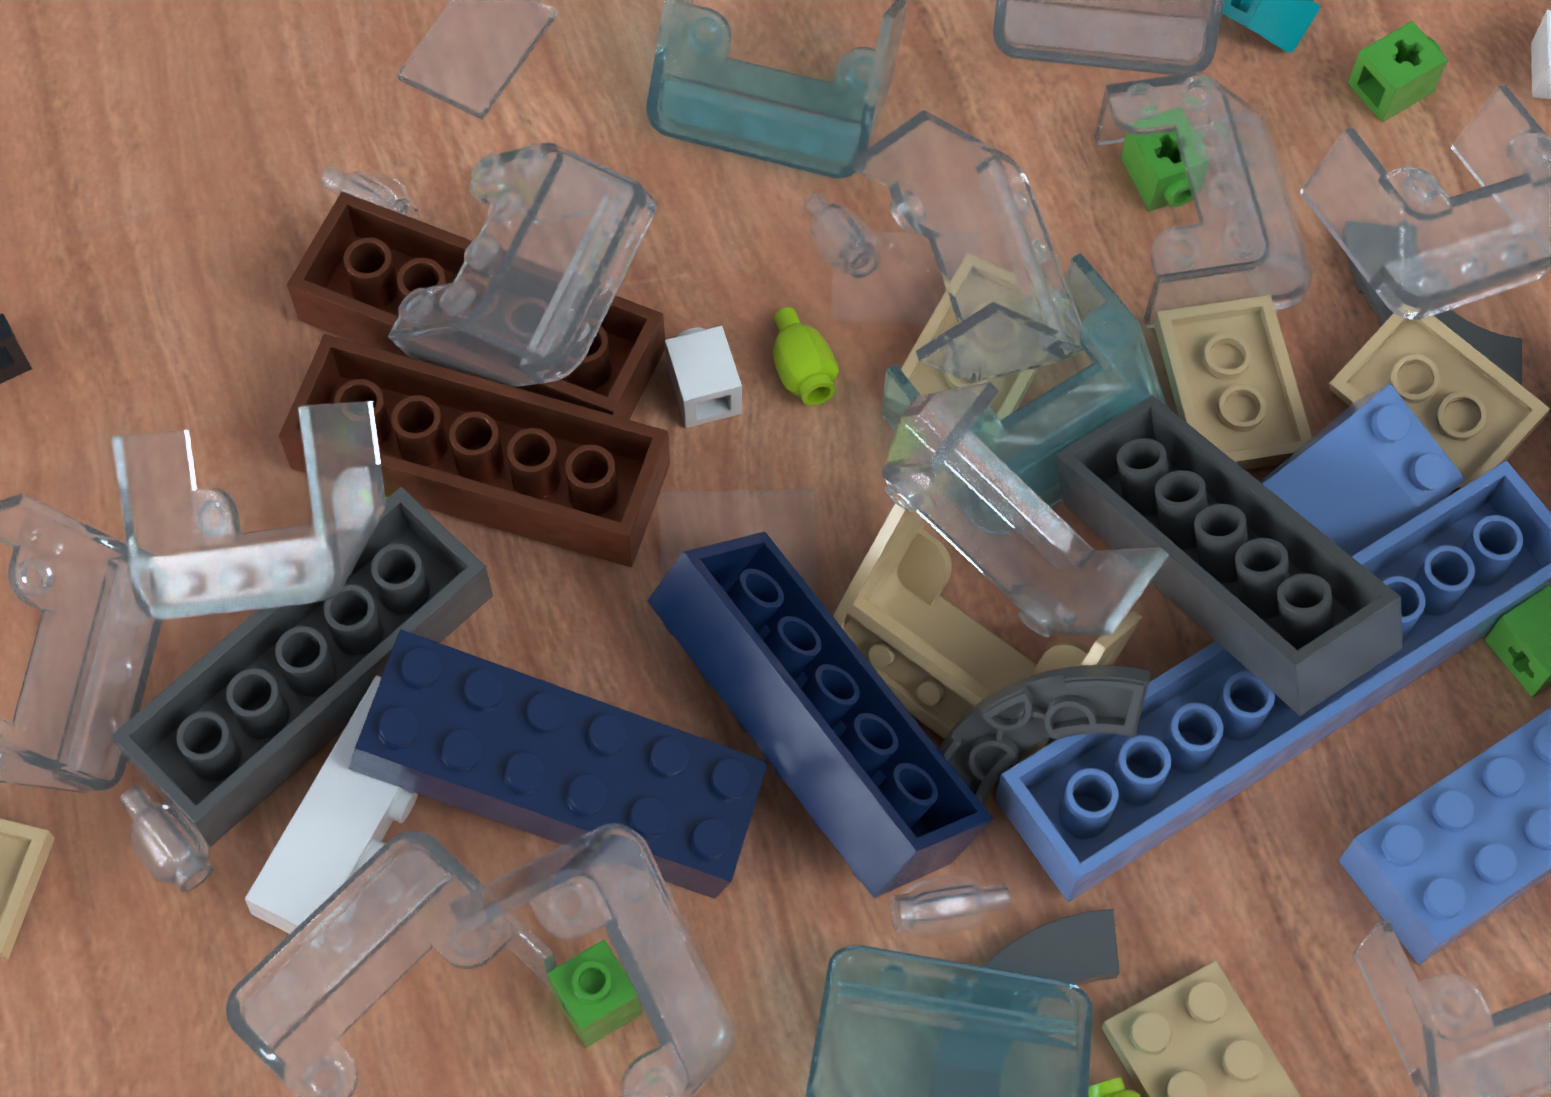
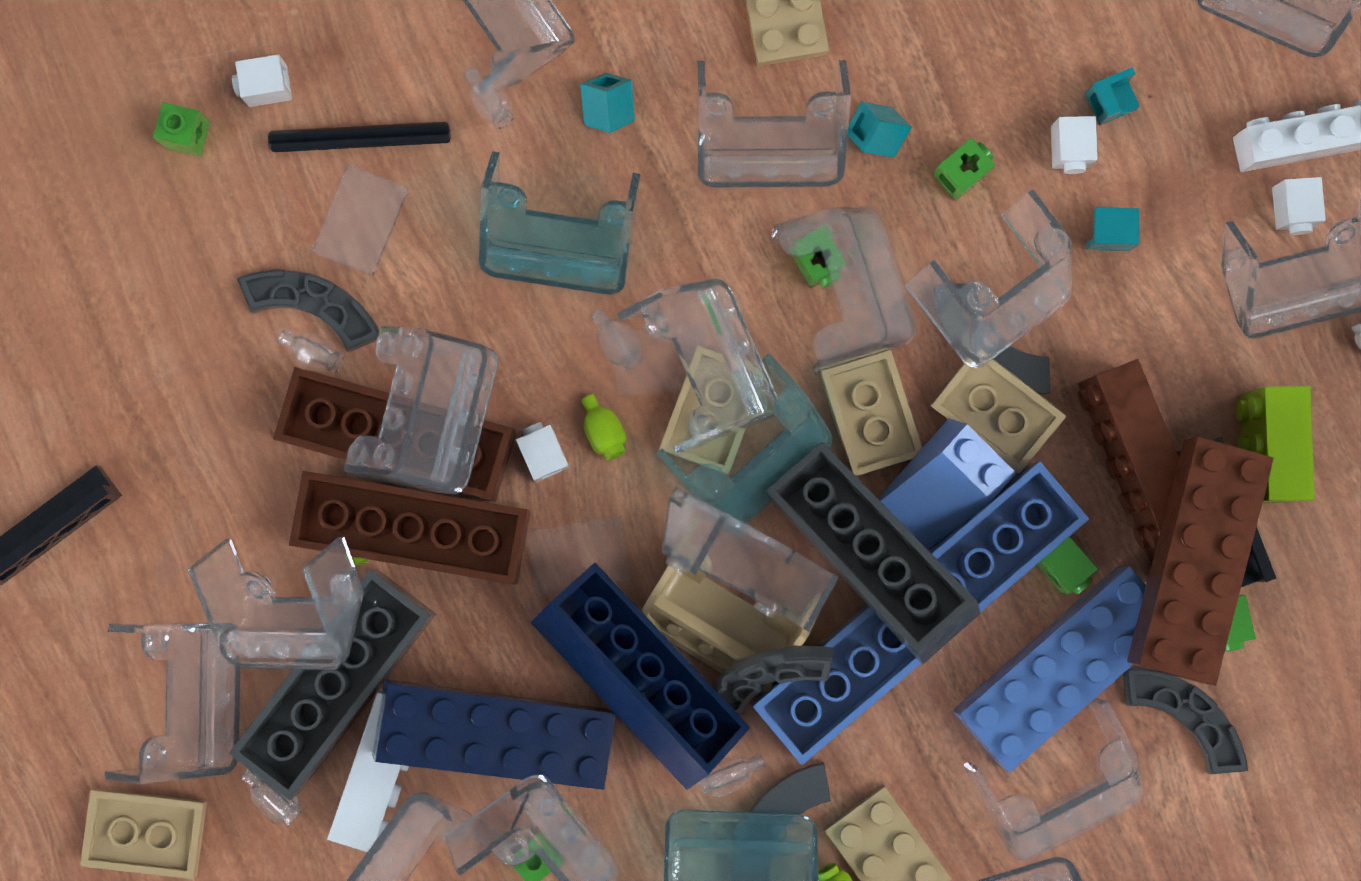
camera: 15 degrees left, 20 degrees up
(385, 131) = (312, 295): none -> dark grey tile

